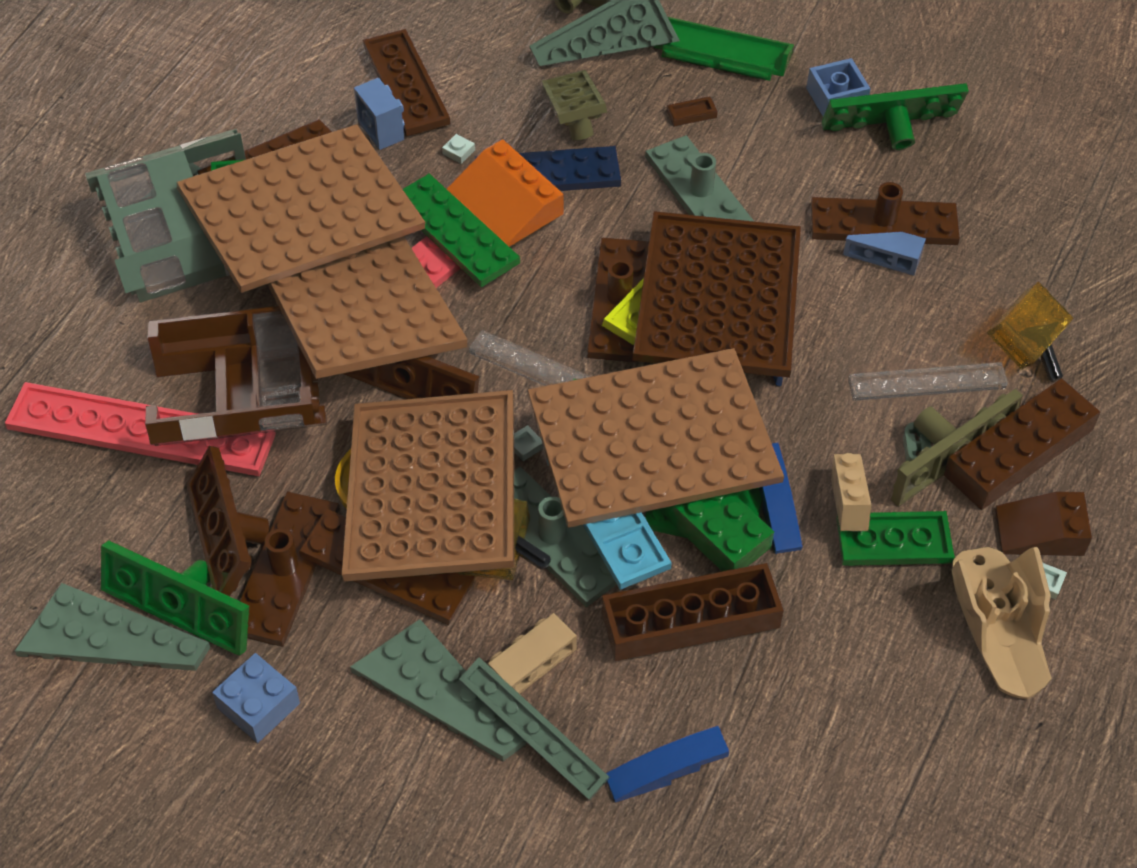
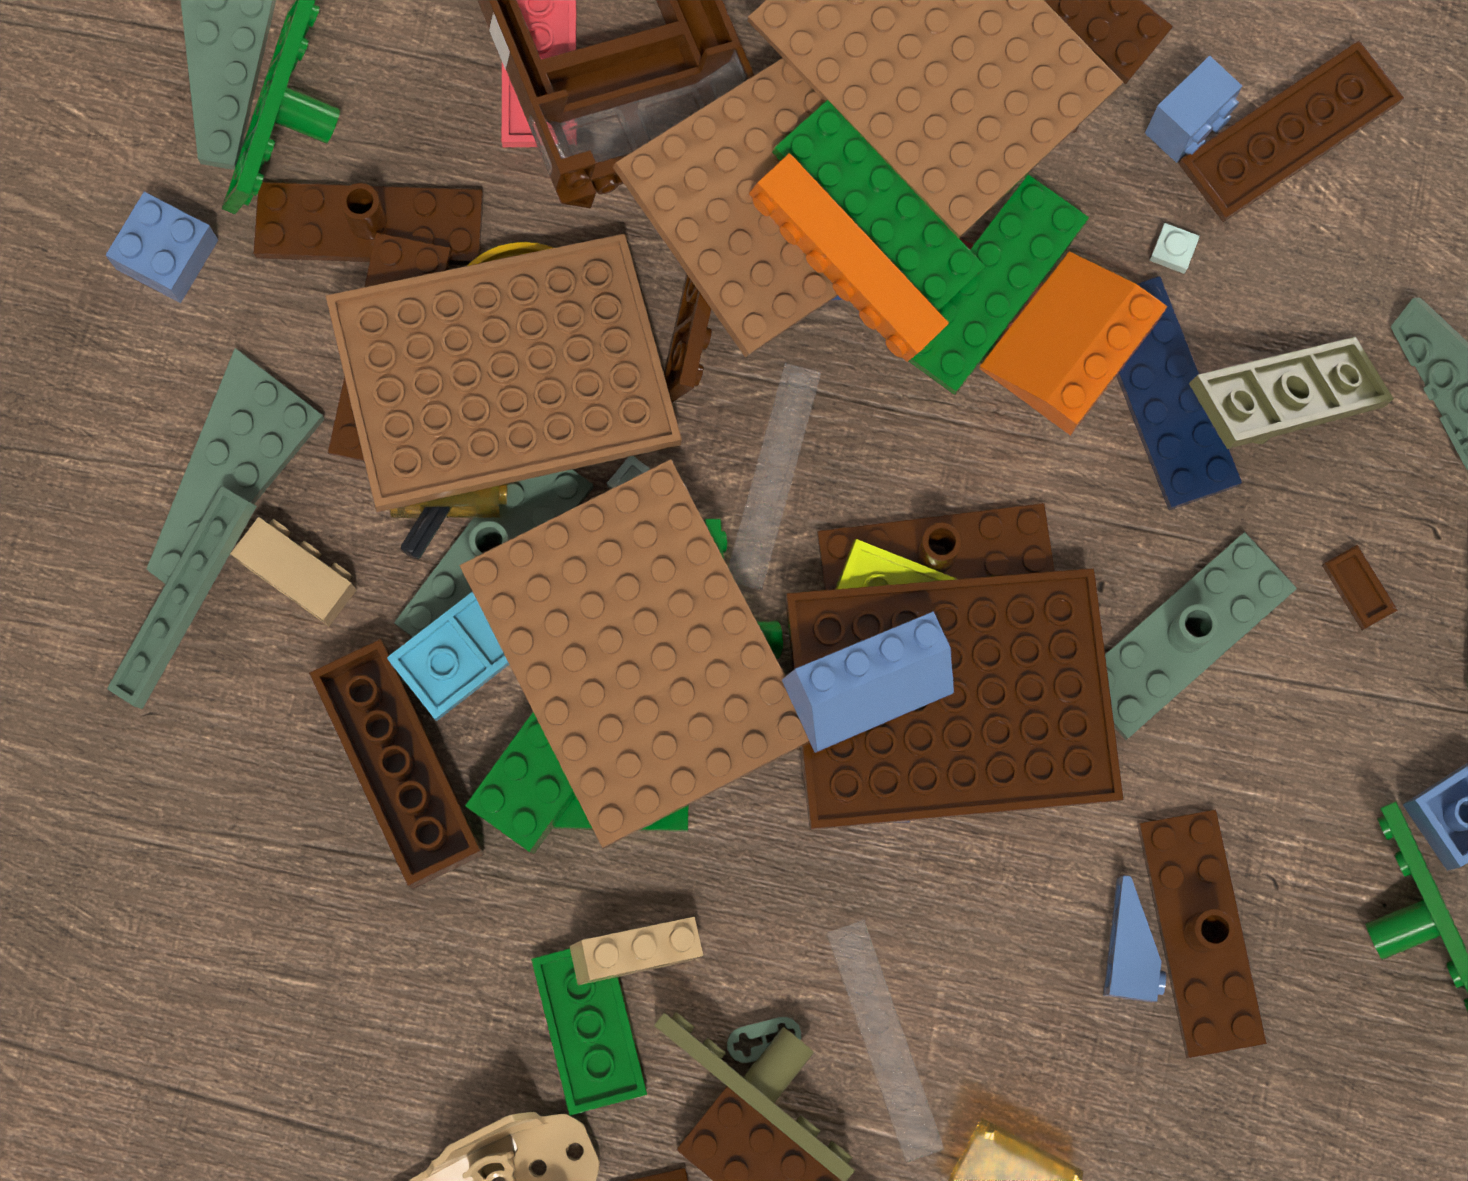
camera: 75 degrees right, 25 degrees up
(219, 524) = (389, 125): reddish brown plate -> none
(391, 258) = (881, 204): none -> green plate
(420, 274) = (847, 258): none -> orange brick
(666, 763) = (170, 777): blue slope -> none
(703, 312) = (871, 682): none -> medium blue slope
(780, 512) = (589, 861): blue slope -> none

